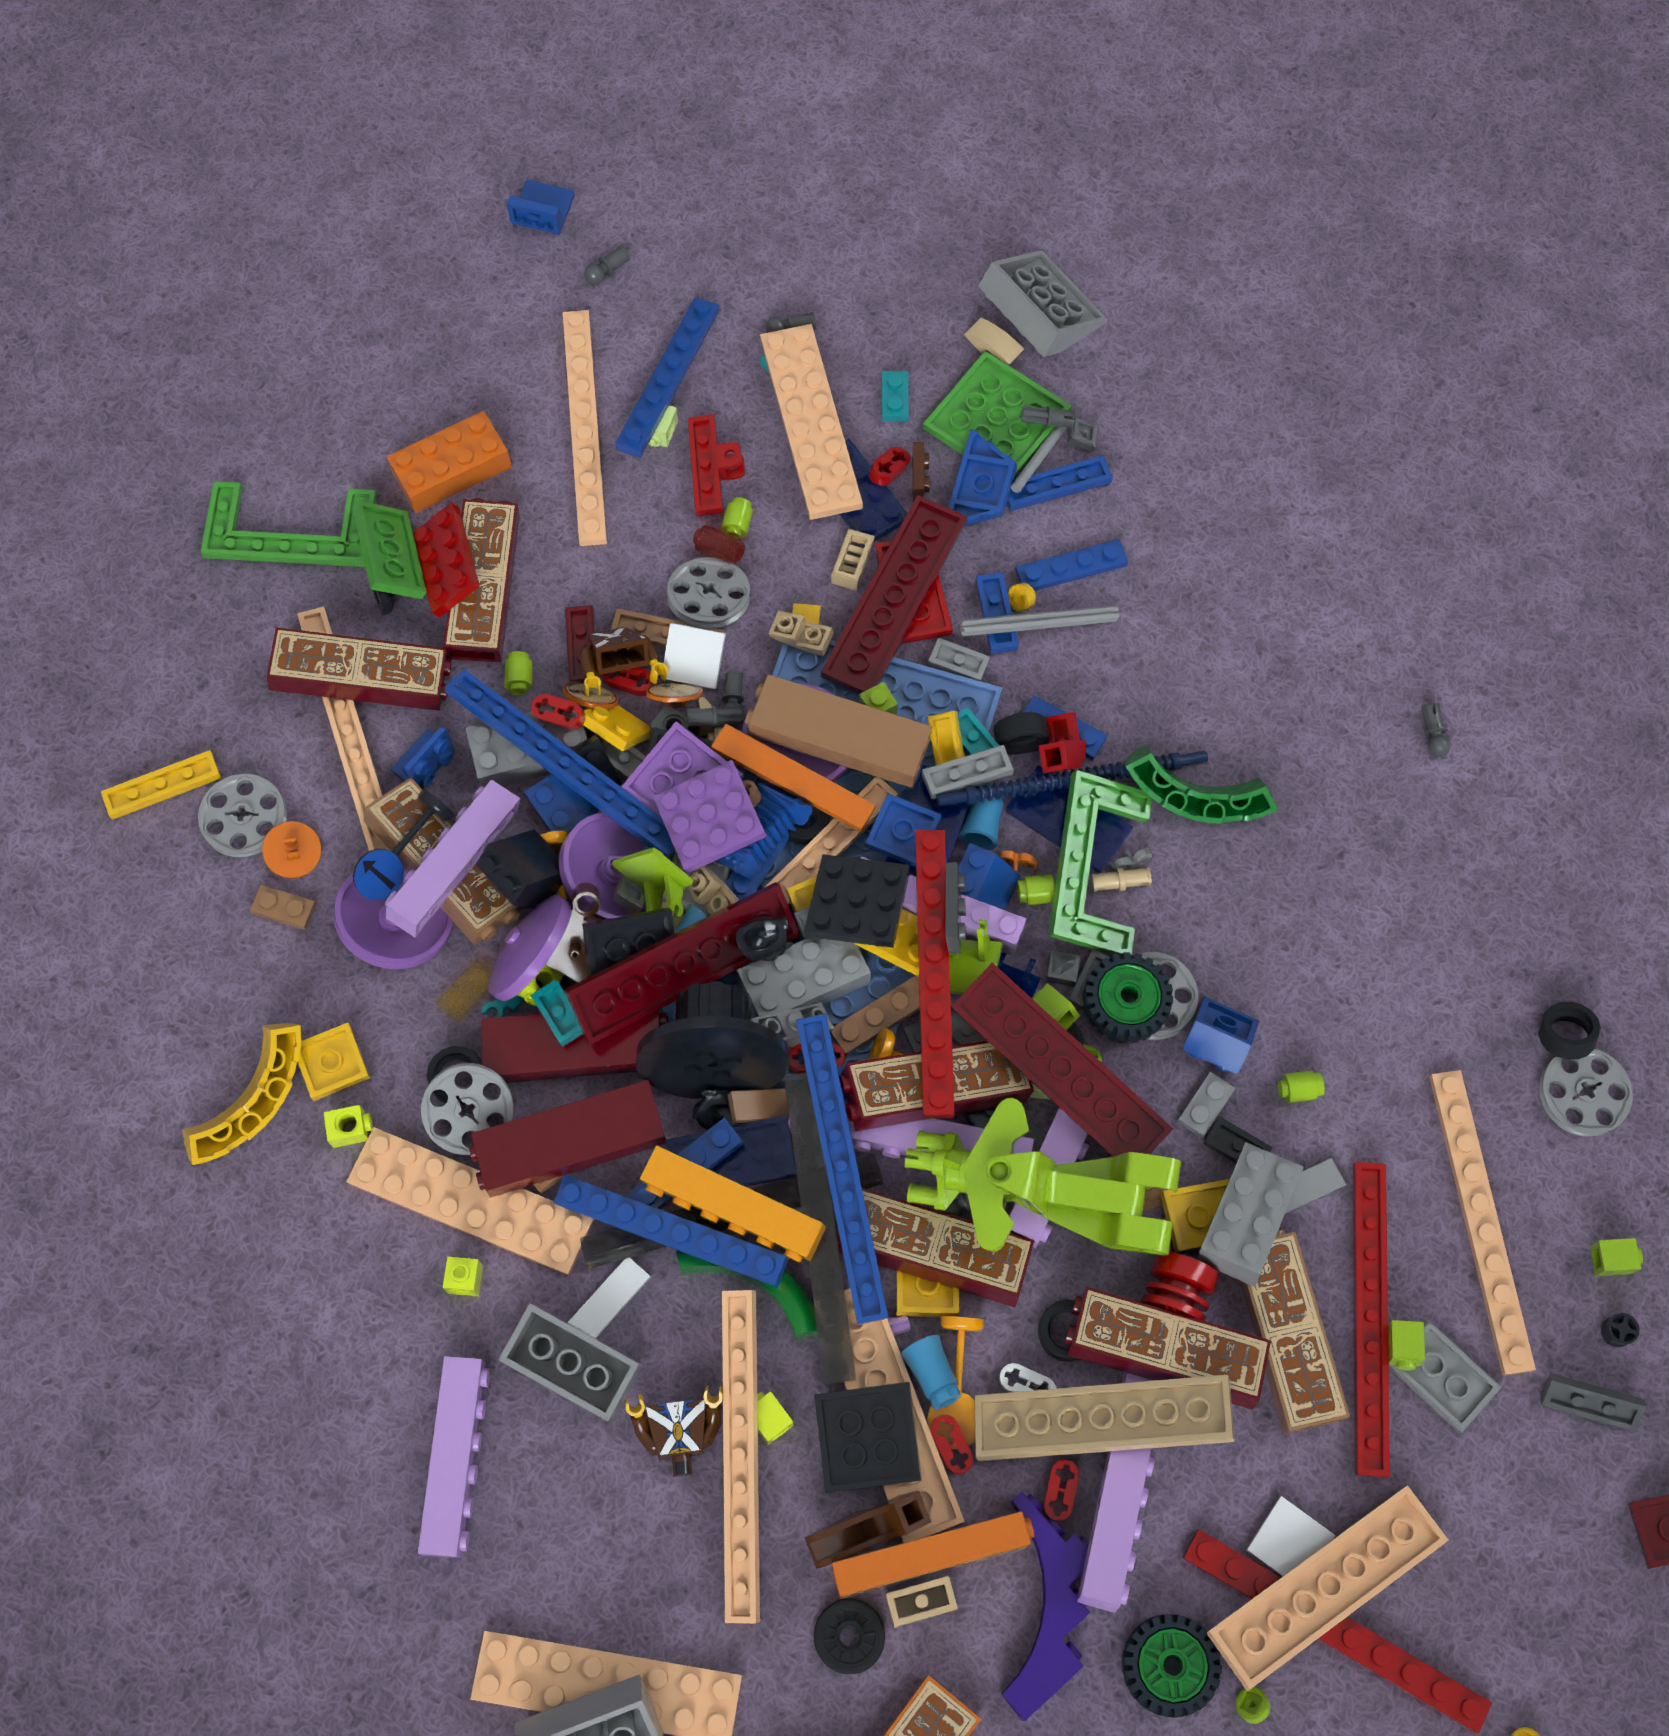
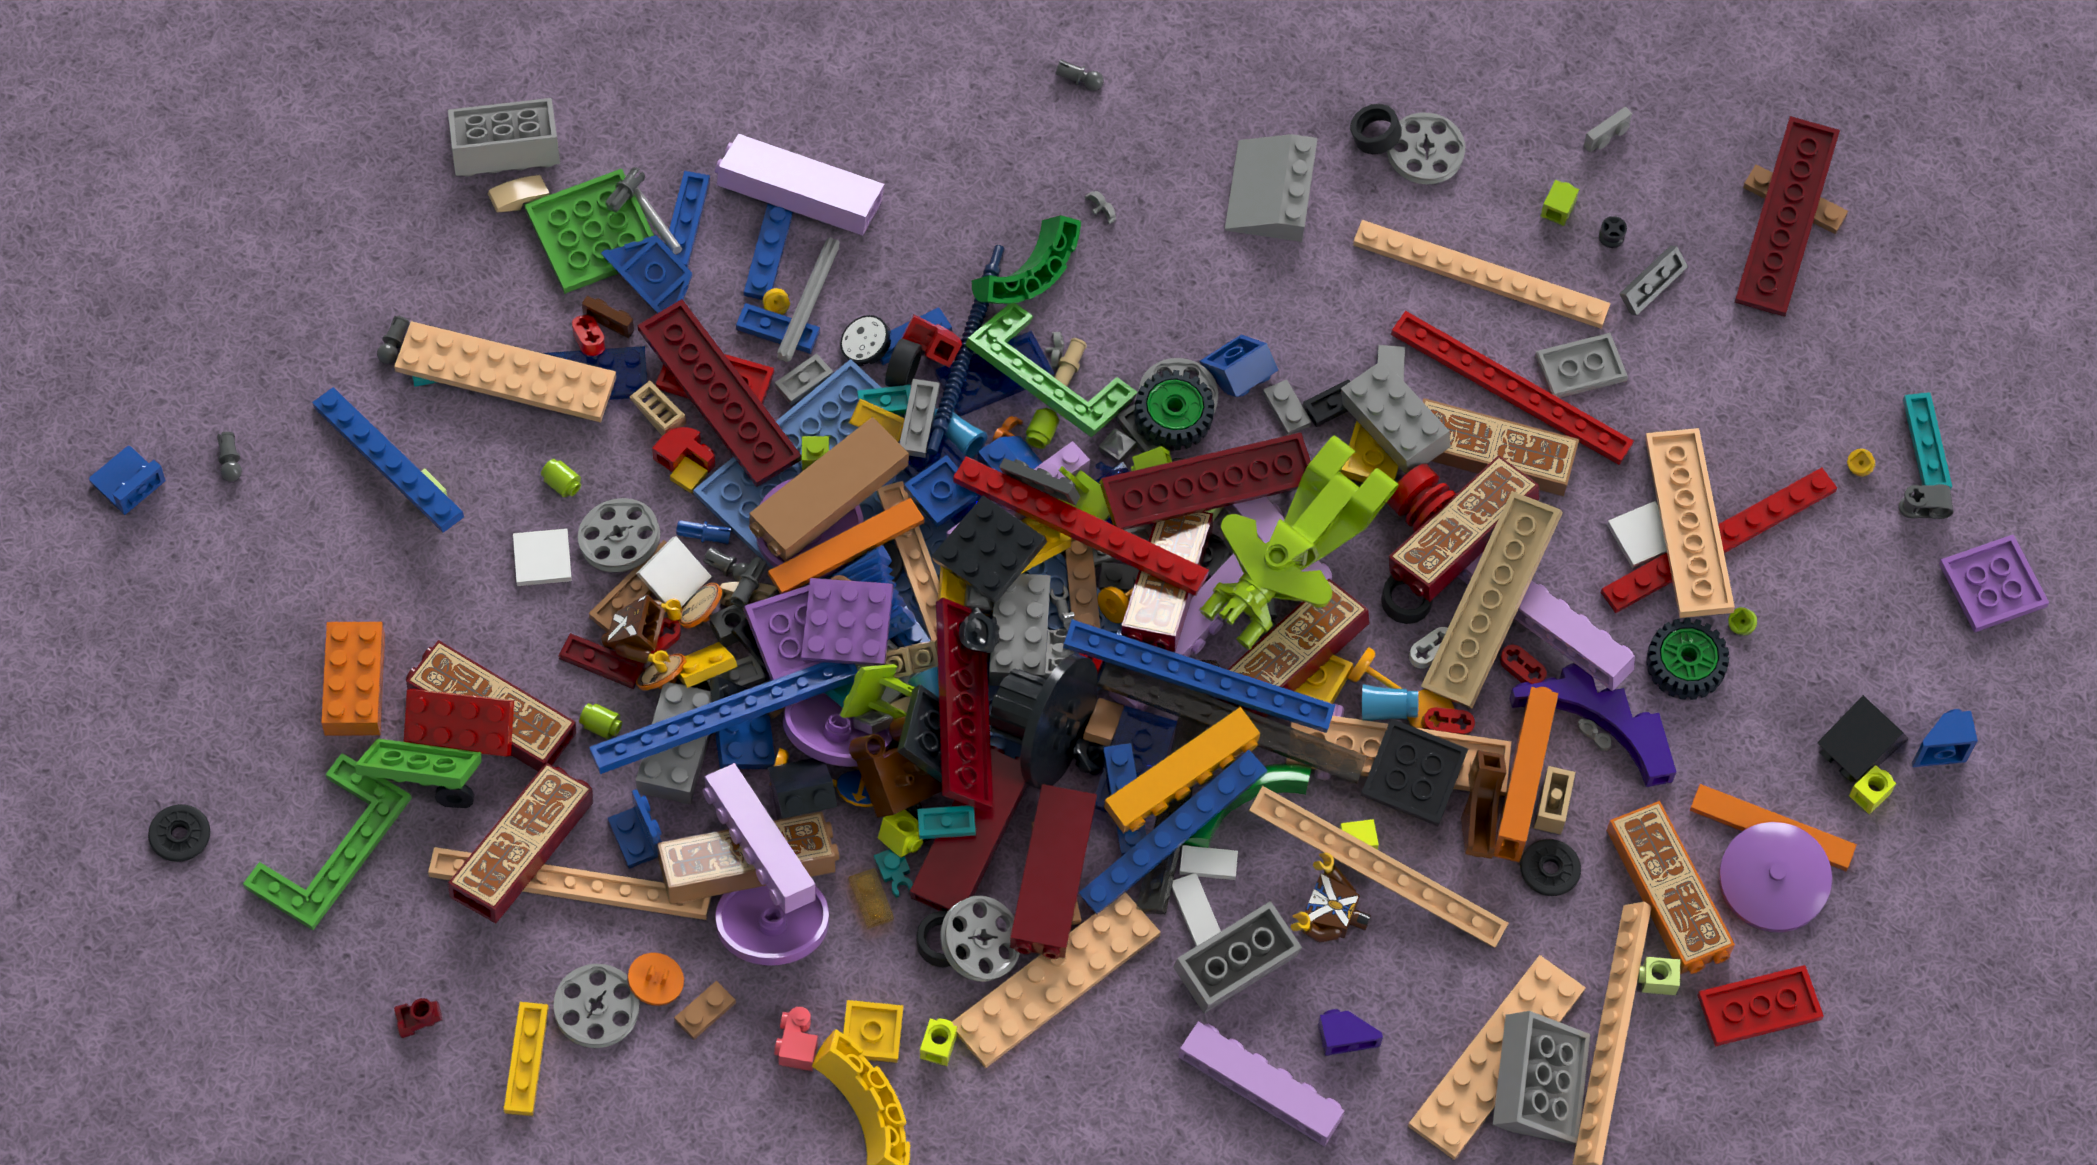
camera: 65 degrees left, 5 degrees down
(157, 677) = (417, 1016): none -> dark red plate
(234, 400) = (179, 849): none -> black wheel
(280, 999) = (796, 1047): none -> coral brick
(382, 871) = (732, 897): piece -> none
(463, 1276) = (1119, 1008): neon yellow brick -> none
(529, 947) = (877, 817): medium lavender dish -> none
(549, 1513) = (1346, 1033): none -> dark purple slope
(559, 705) = (669, 690): red beam -> none
(584, 428) = (384, 555): light nougat plate -> none
(654, 546) = (542, 557): none -> white tile
(668, 1283) = (1208, 862): none -> white tile
(711, 464) = (492, 472): red plate -> none
(718, 544) = (578, 504): clear red head -> none
(753, 657) = (704, 531): none -> blue axle
(798, 633) = (709, 481): tan slope -> none
(828, 593) = (682, 443): none -> red brick
(849, 1009) = (1062, 607): none -> light grey arm
(895, 396) = (518, 297): teal plate -> none
(1030, 690) = (865, 340): none -> white tile
(1031, 1598) = (1589, 729): none -> light grey piece
(1083, 434) = (654, 176): flat silver tile -> none
(1151, 553) = (799, 184): none -> brick
(1301, 1086) = (1312, 333): lime brick -> none
(1312, 823) = (1100, 201): none -> light grey piece
(1406, 1344) = (1547, 372): lime brick -> none
(1438, 966) = (1271, 186): none -> light grey slope

